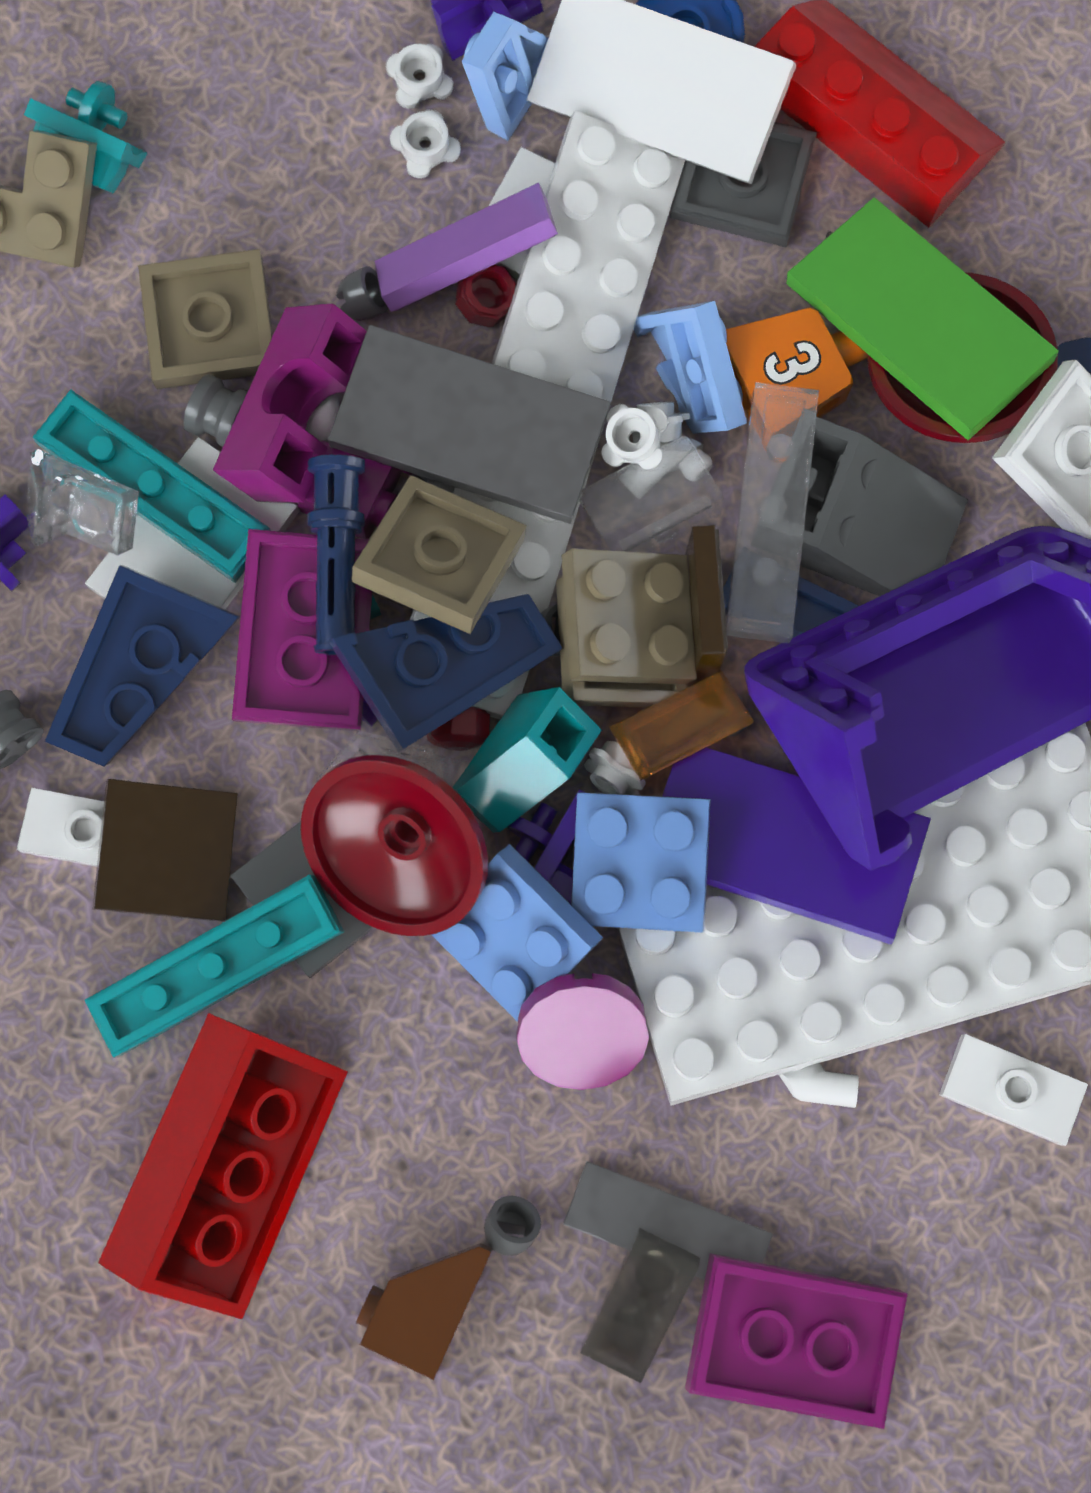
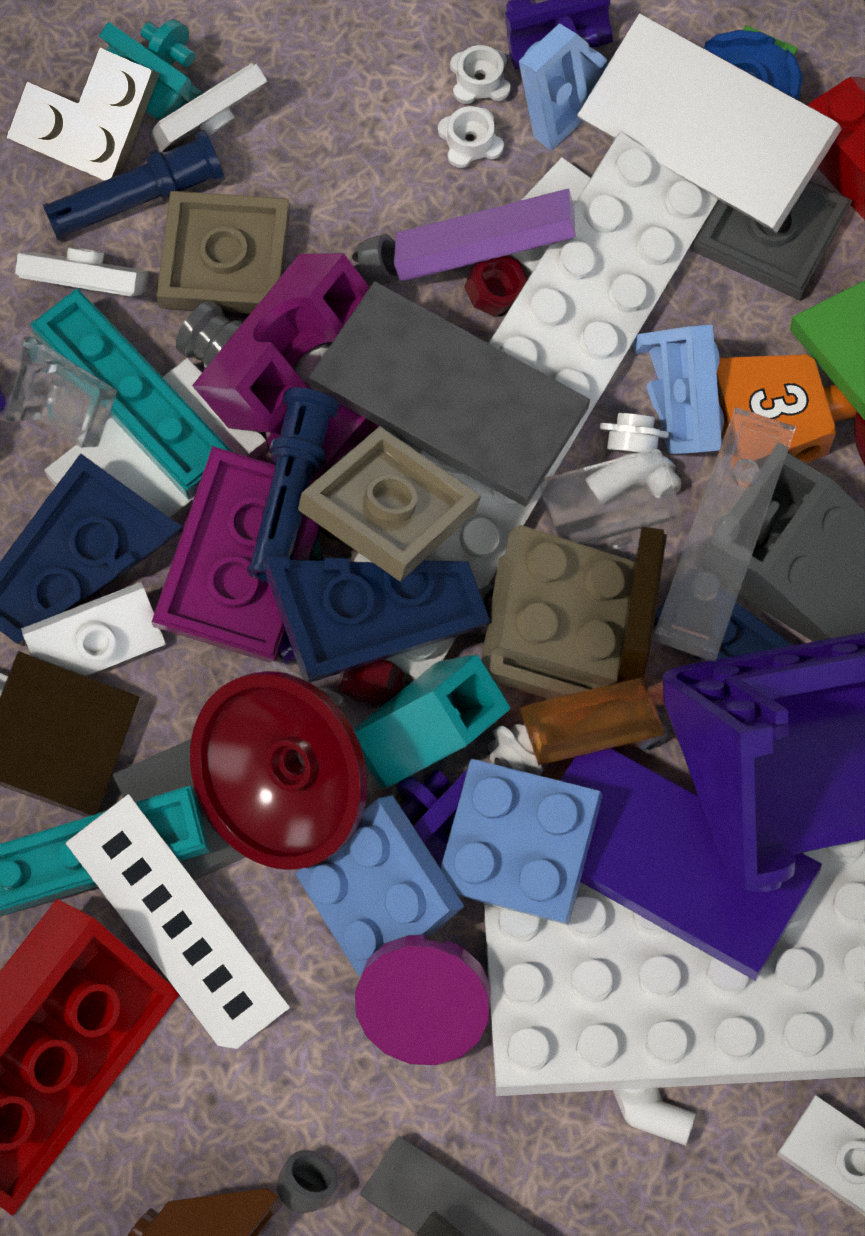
camera: 15 degrees right, 10 degrees down
(70, 368) = (82, 270): none -> white plate
(121, 253) = (162, 173): none -> dark blue pin
(156, 170) = (209, 110): none -> white plate
(178, 739) = (97, 632): none -> white plate
(329, 1009) = (177, 925): none -> white sticker
(623, 422) = (595, 425): white plate -> none

